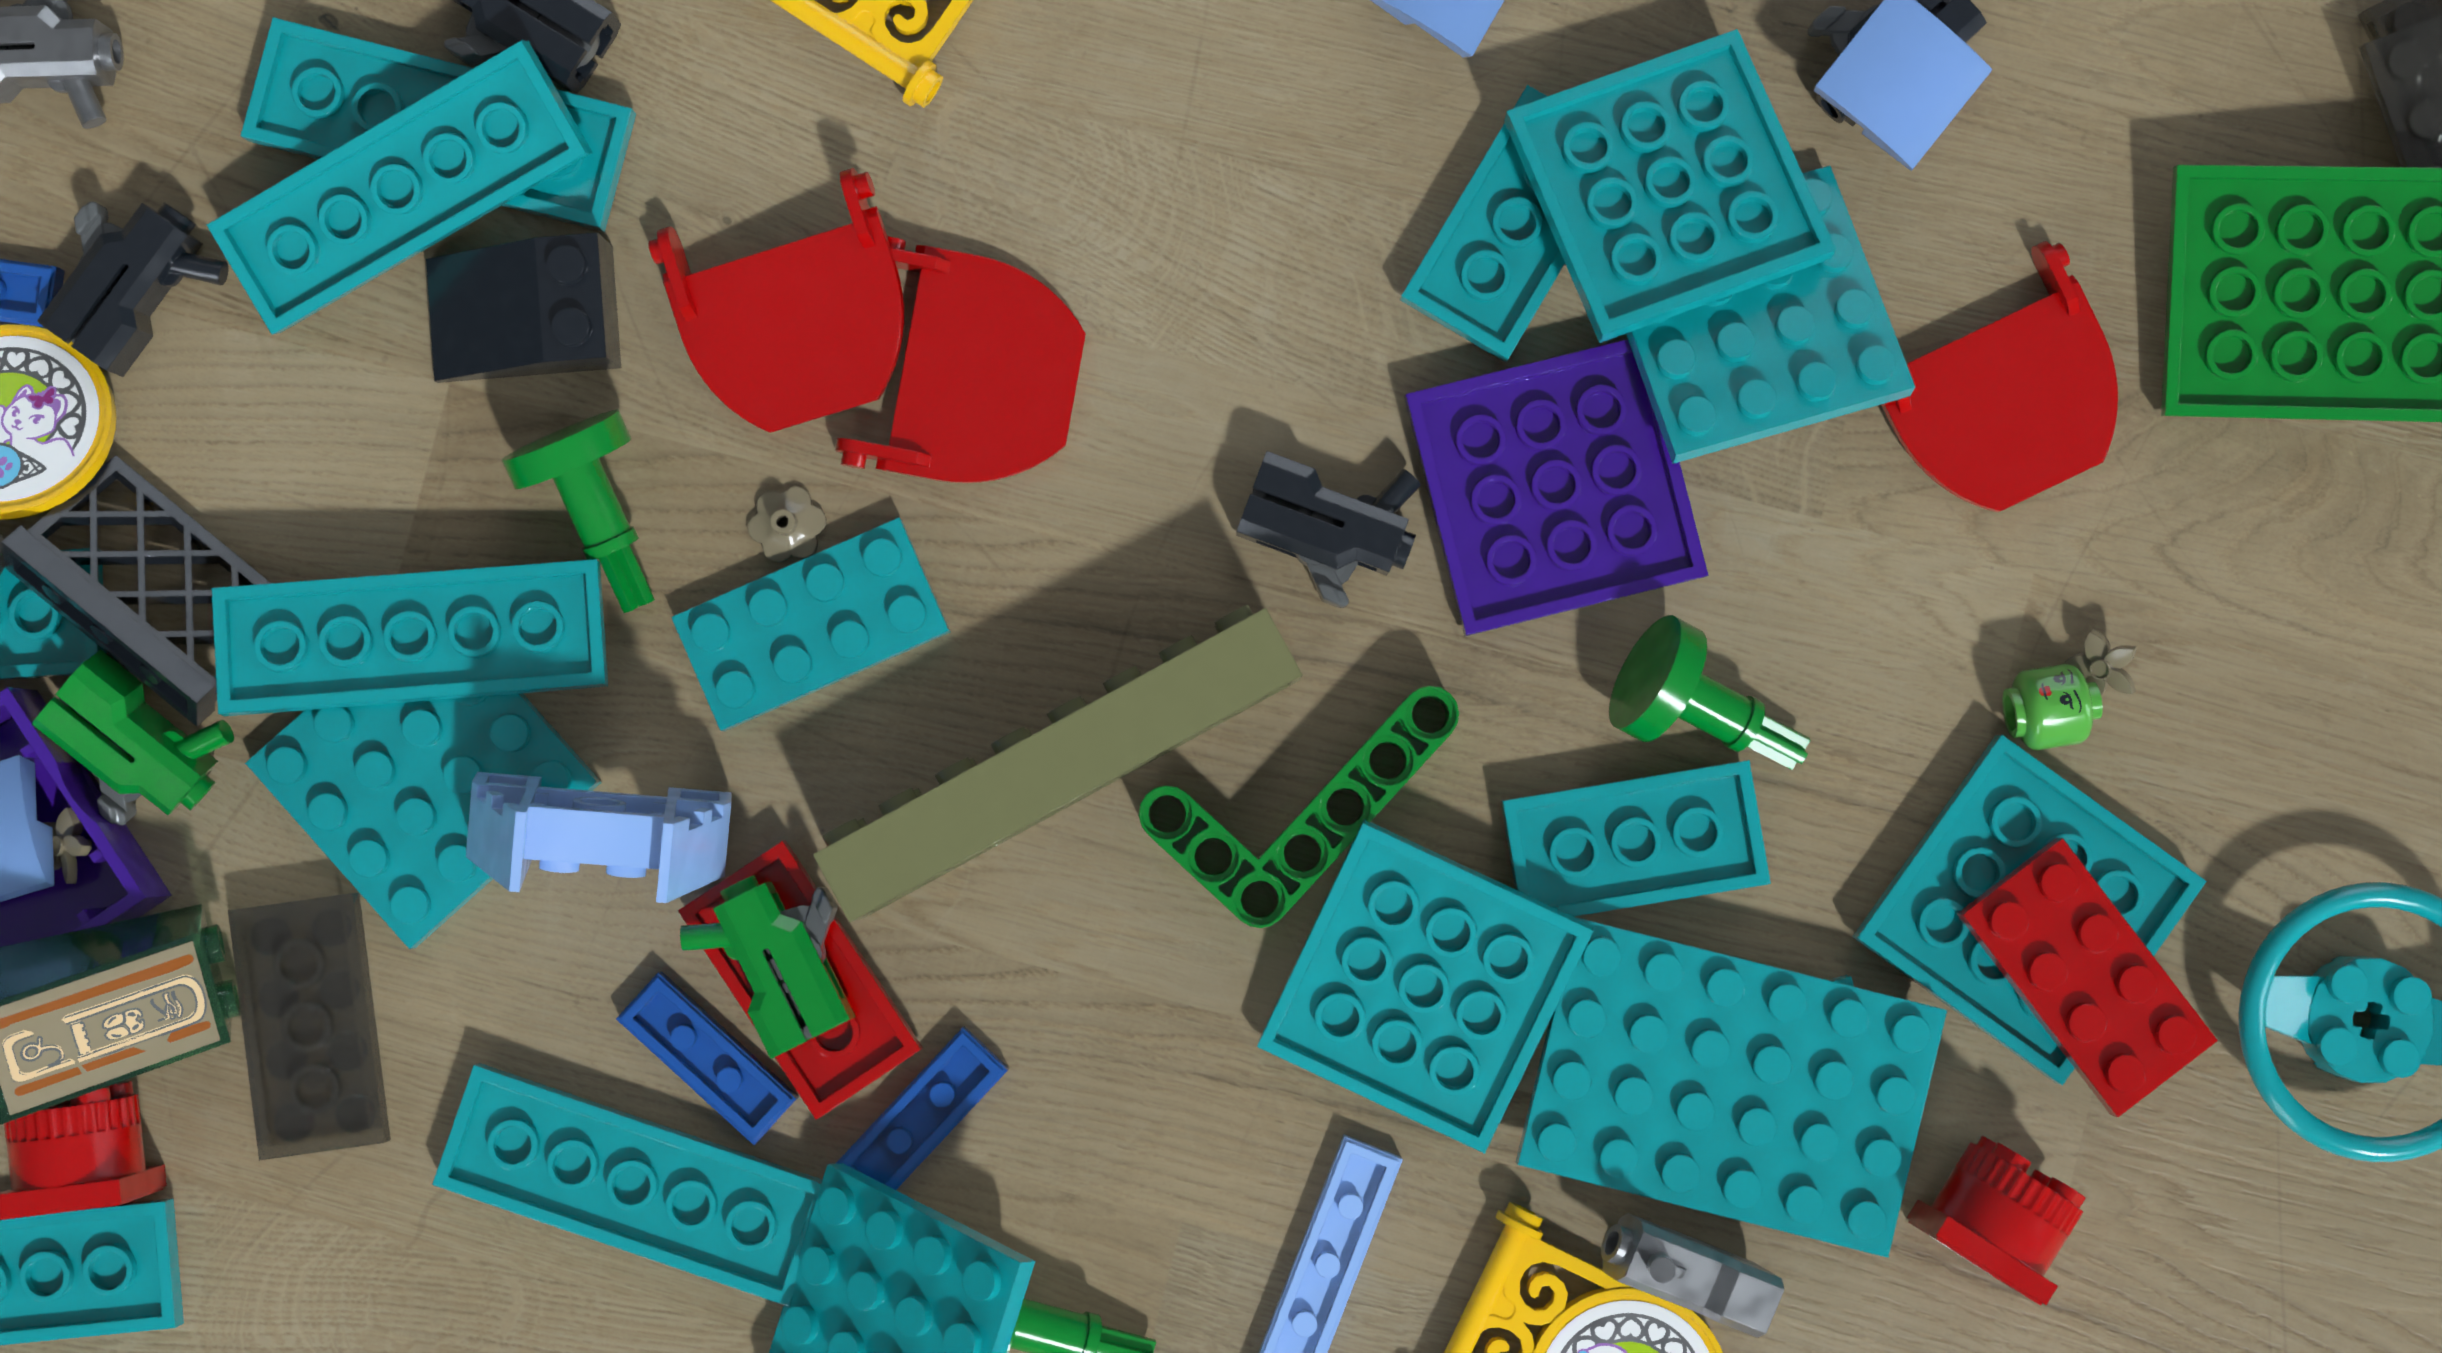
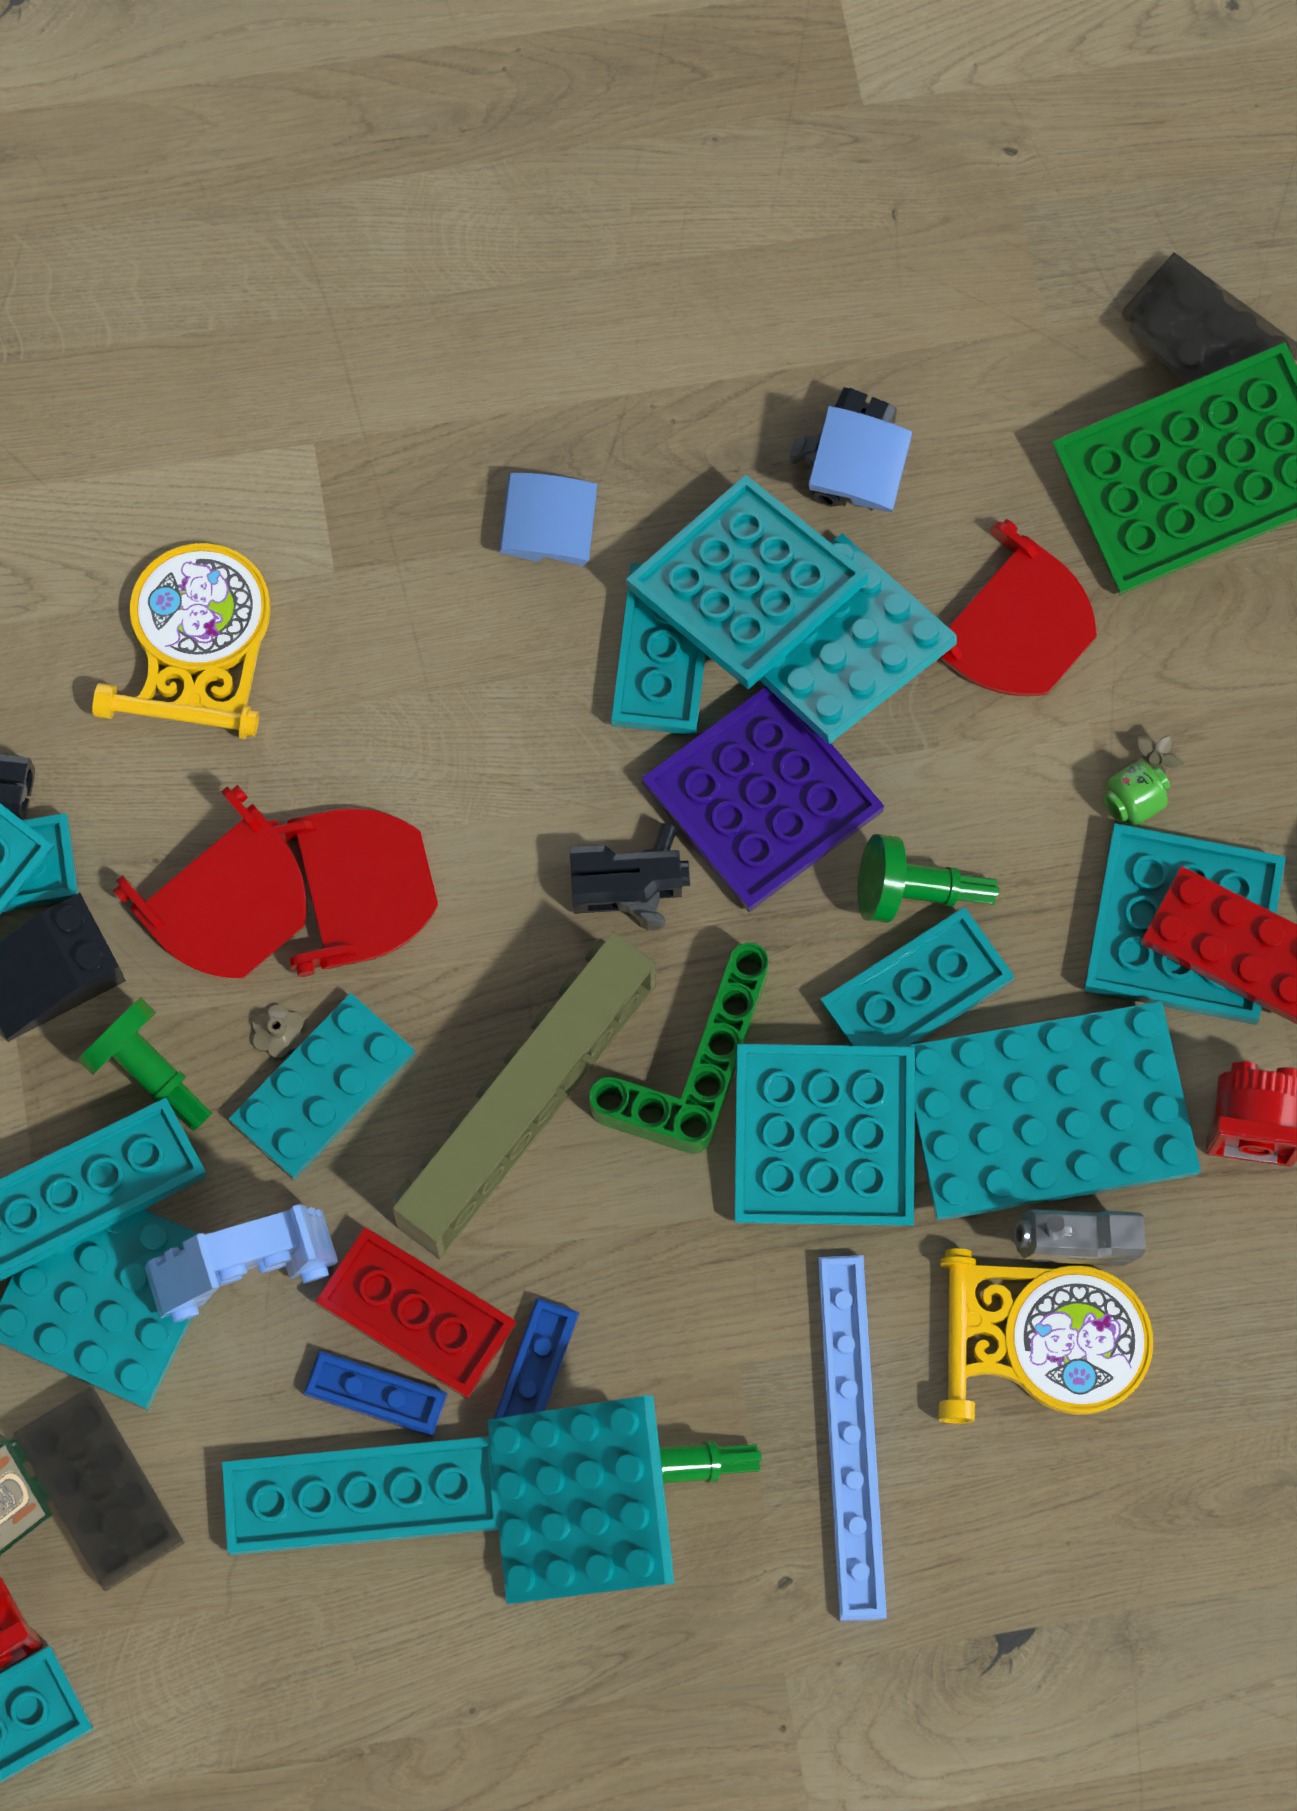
camera: 25 degrees left, 15 degrees down
(781, 958) = (400, 1295): green piece -> none

